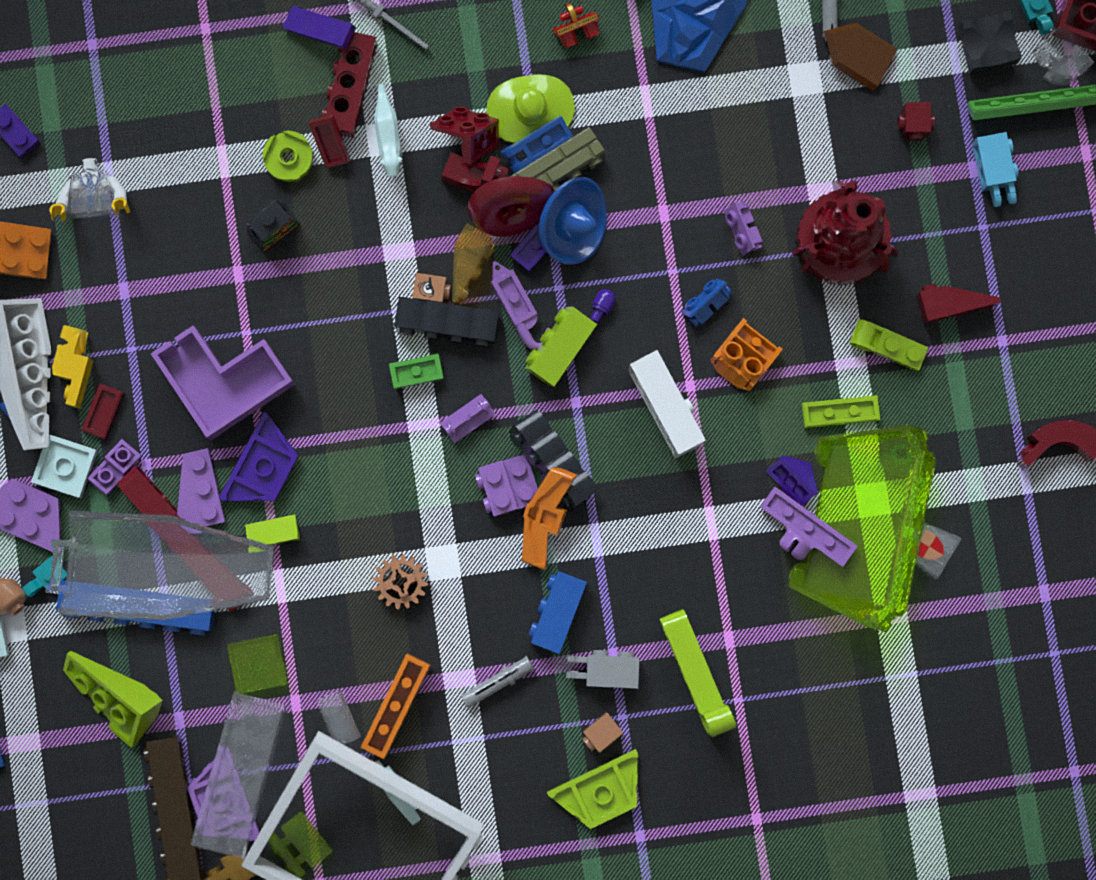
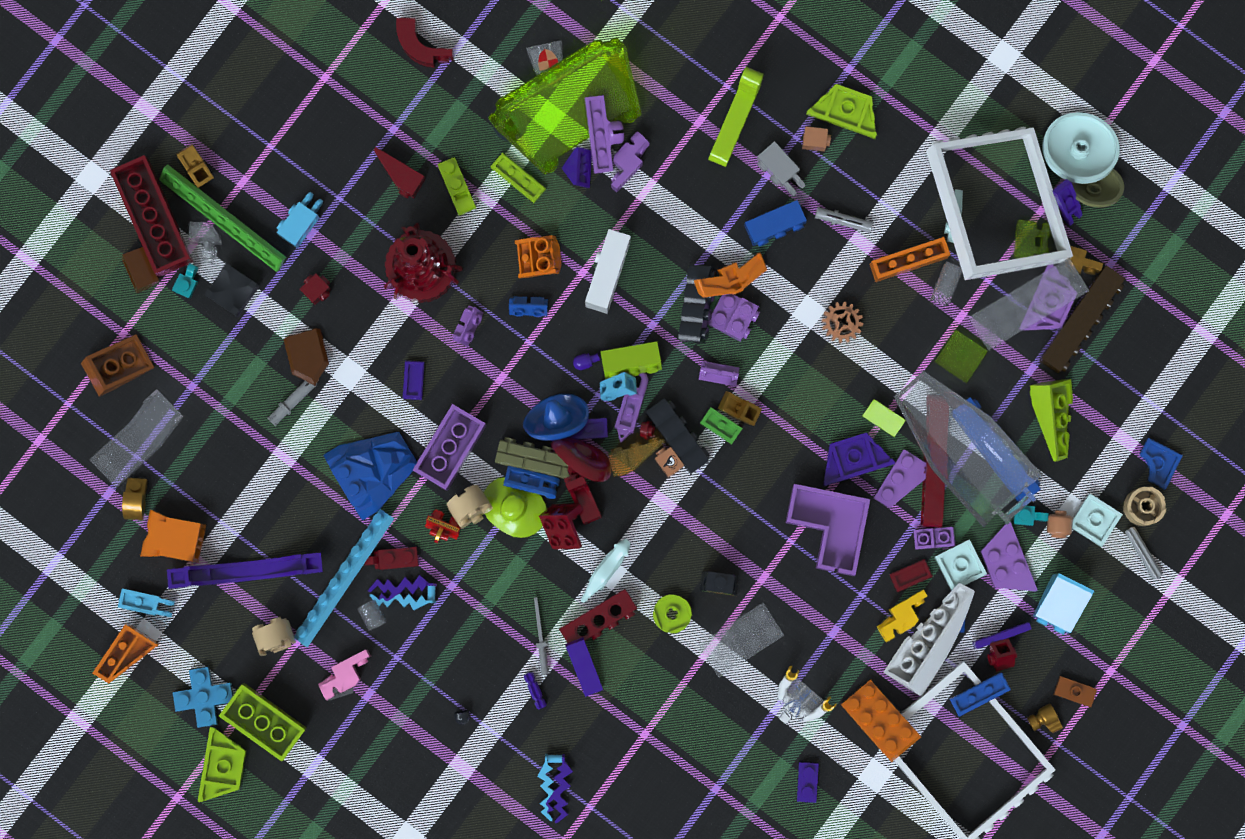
camera: 130 degrees left, 0 degrees up
(200, 193) = (740, 640): none -> clear brick
(329, 141) = (642, 597): dark red tile -> none
(414, 403) = (739, 408): none -> pearl gold brick
(480, 298) = (647, 430): none -> dark red plate
(547, 309) = (617, 386): none -> medium azure leg
(570, 63) = (469, 506): none -> tan brick
(643, 99) = (449, 447): none -> medium lavender brick
(740, 130) = (413, 380): none -> dark purple tile
(757, 530) = (627, 160): none -> medium lavender plate

